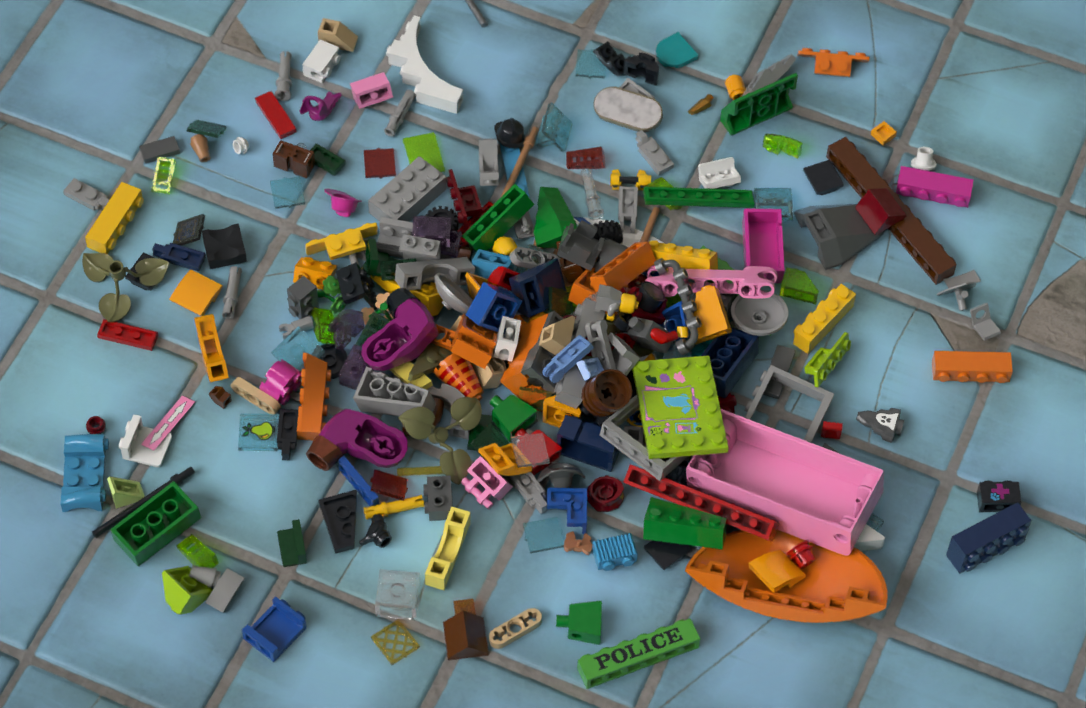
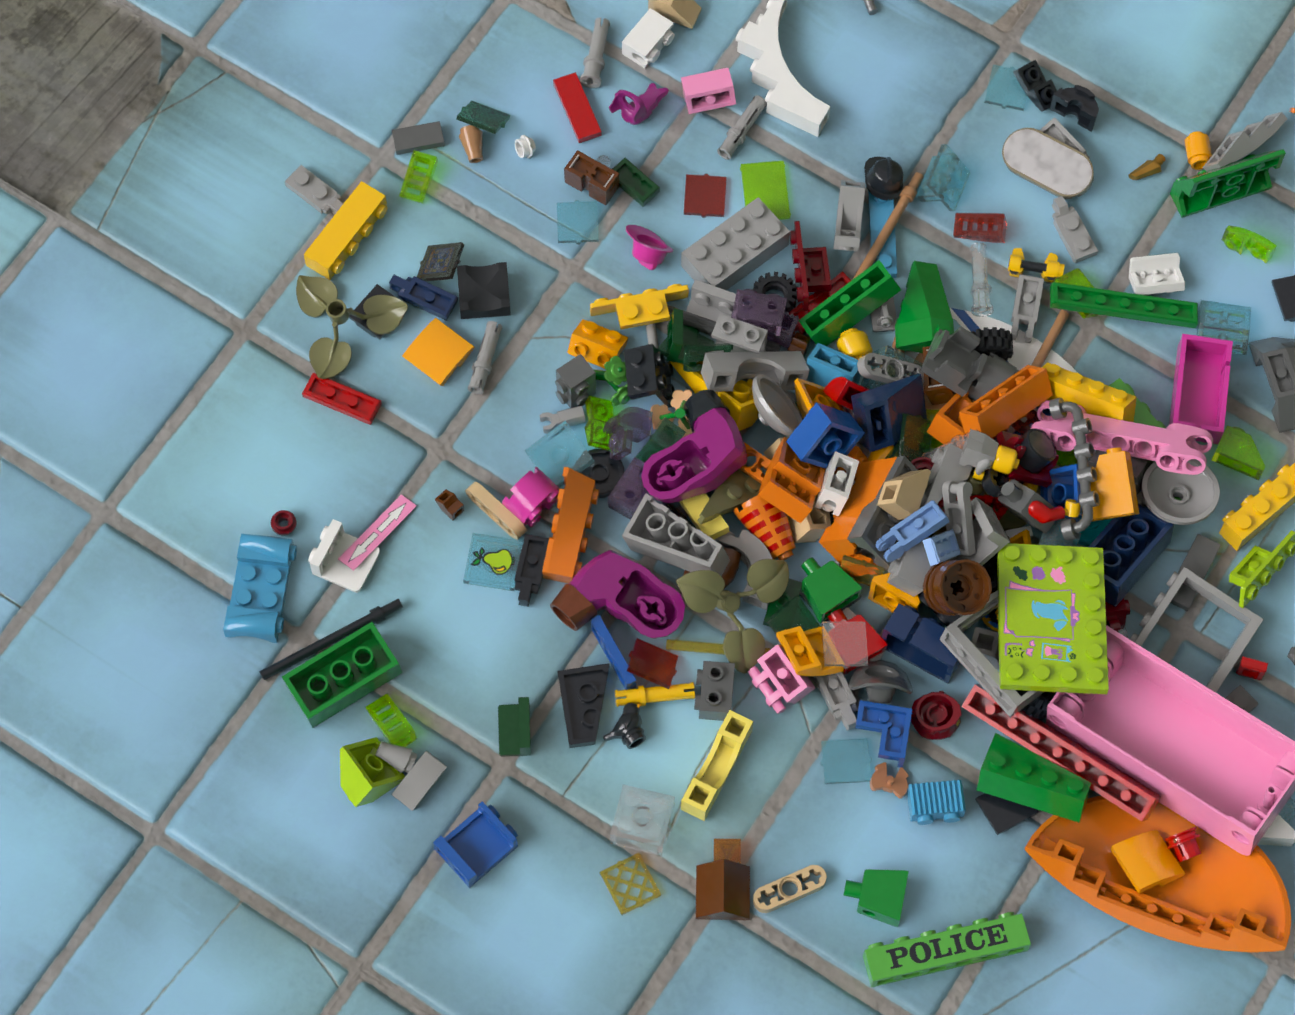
camera: 10 degrees right, 10 degrees up
(124, 491) = (309, 622): yellowish green slope -> none
(210, 348) = (446, 437): light orange arch -> none
(675, 52) = (1124, 85): teal tile -> none

